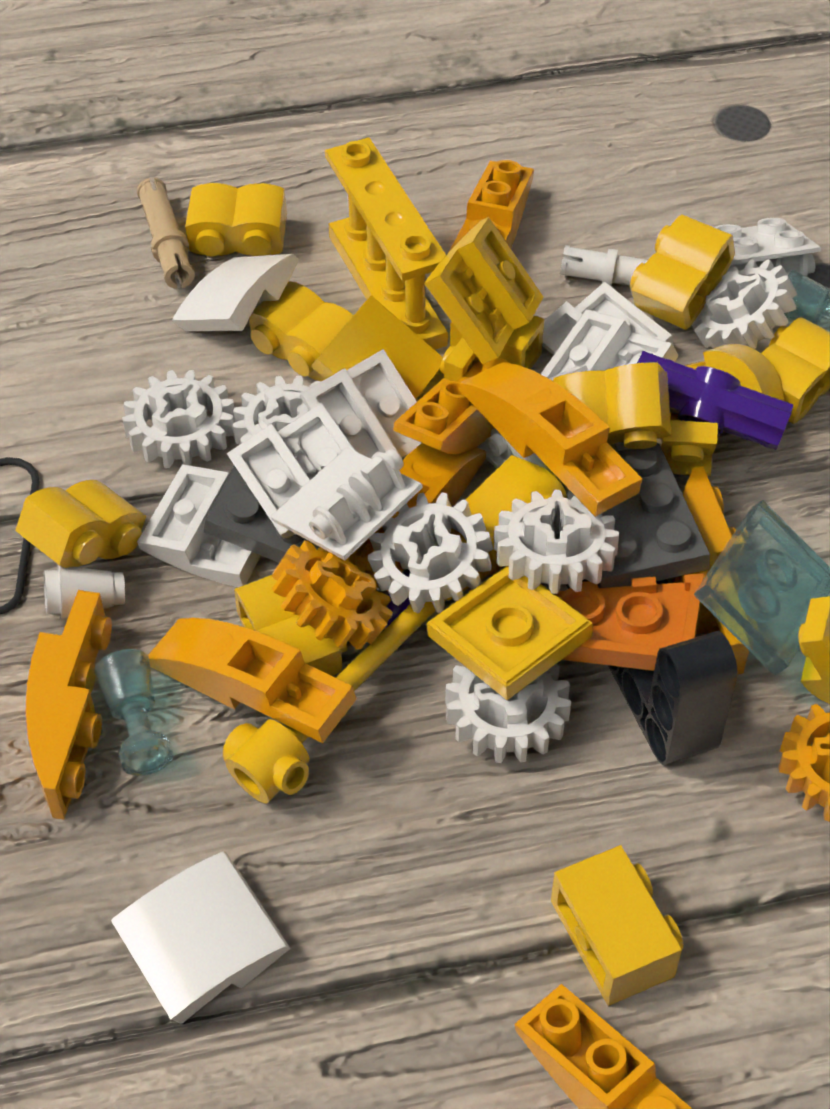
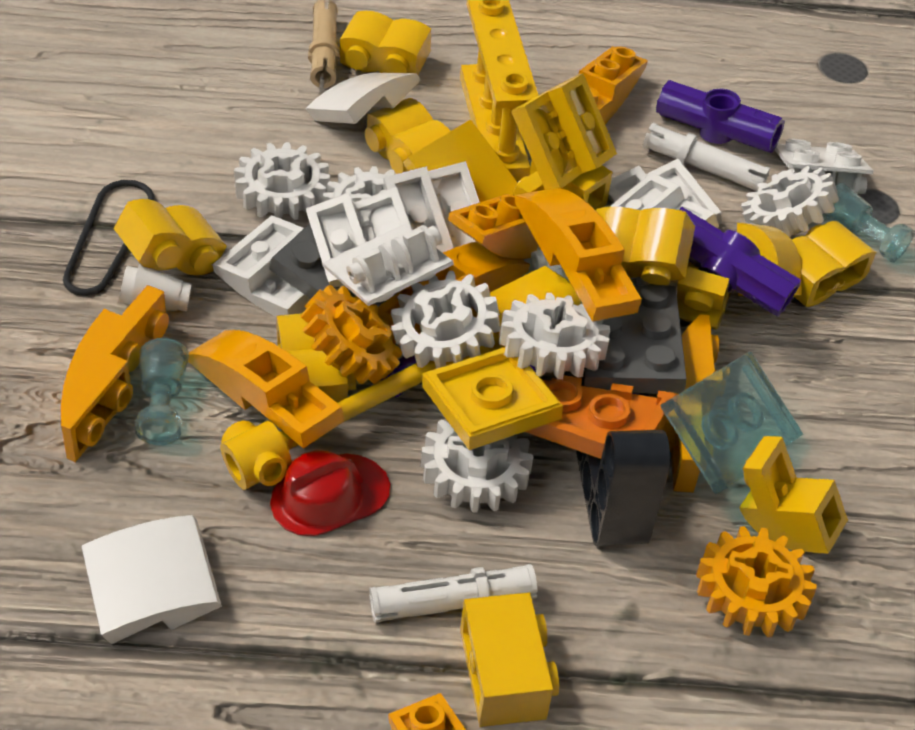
camera: 10 degrees right, 5 degrees down
(358, 781) = (328, 492): none -> red piece
(532, 863) = (448, 593): none -> white pin
(628, 216) = (720, 116): none -> dark purple piece
(682, 271) = (744, 161): yellow brick -> none

